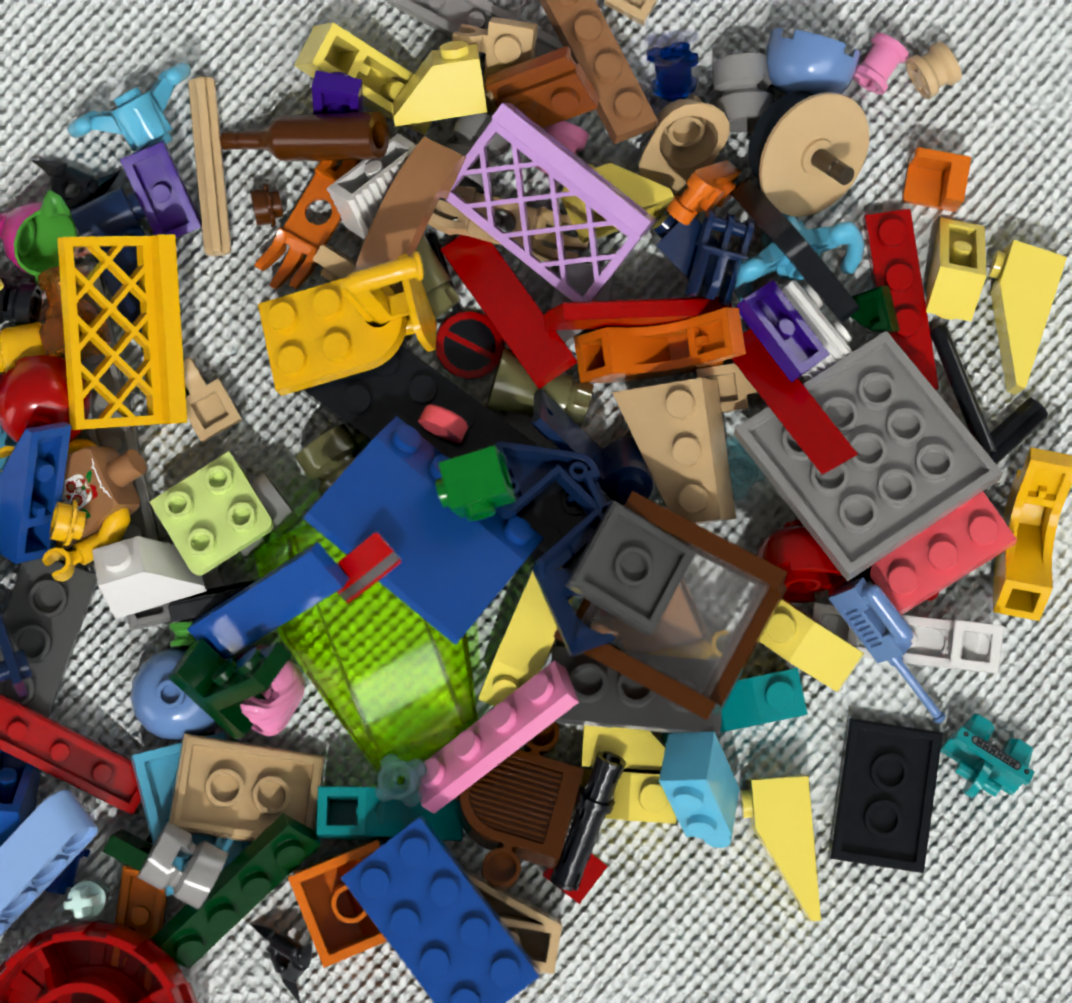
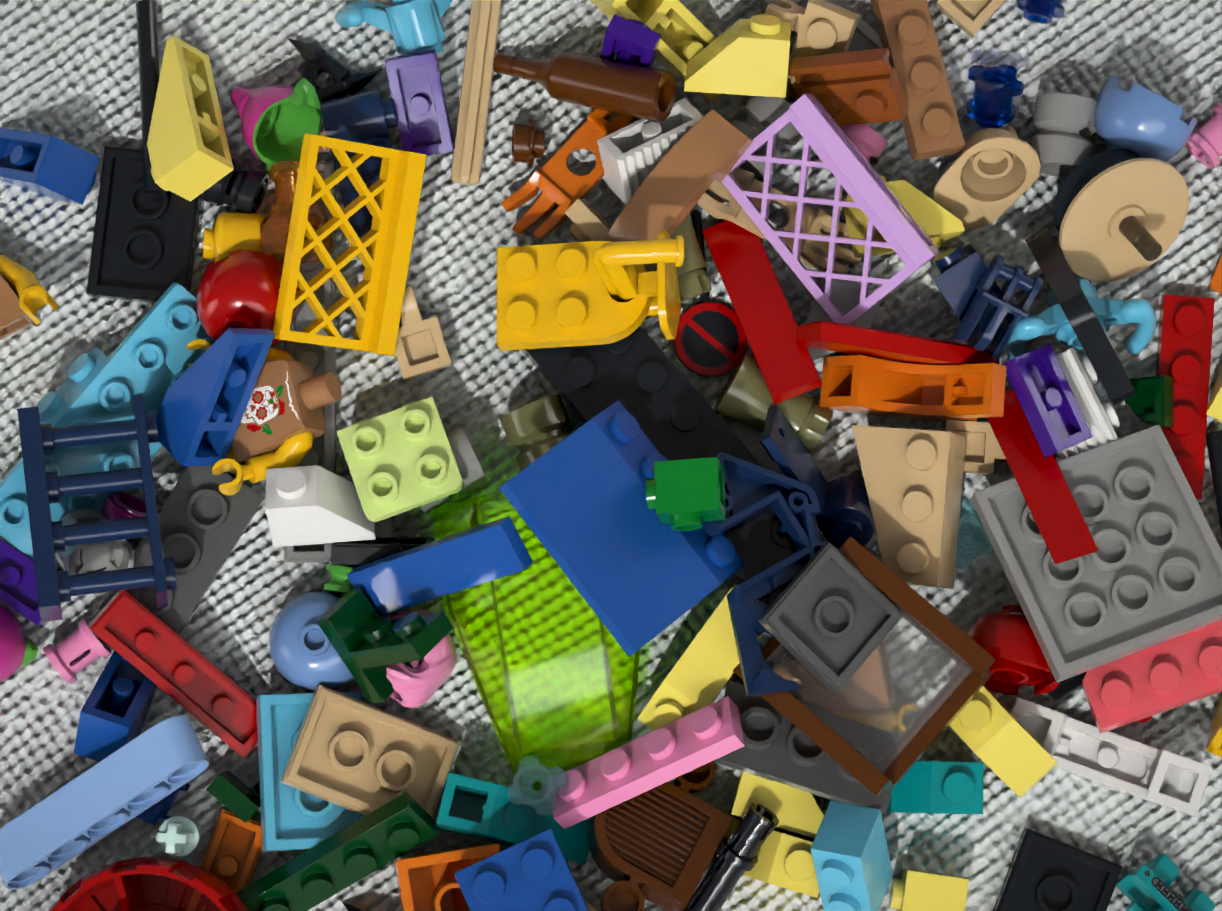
camera: 15 degrees right, 0 degrees up
(67, 522) = (246, 434): yellow plate -> none
(198, 873) = (302, 836): light grey wheel -> none
(366, 566) = (554, 553): red sticker -> none
(443, 423) = (666, 419): coral tile -> none
(705, 190) = (998, 232): orange plate -> none
(880, 630) = (1081, 743): medium blue piece -> none

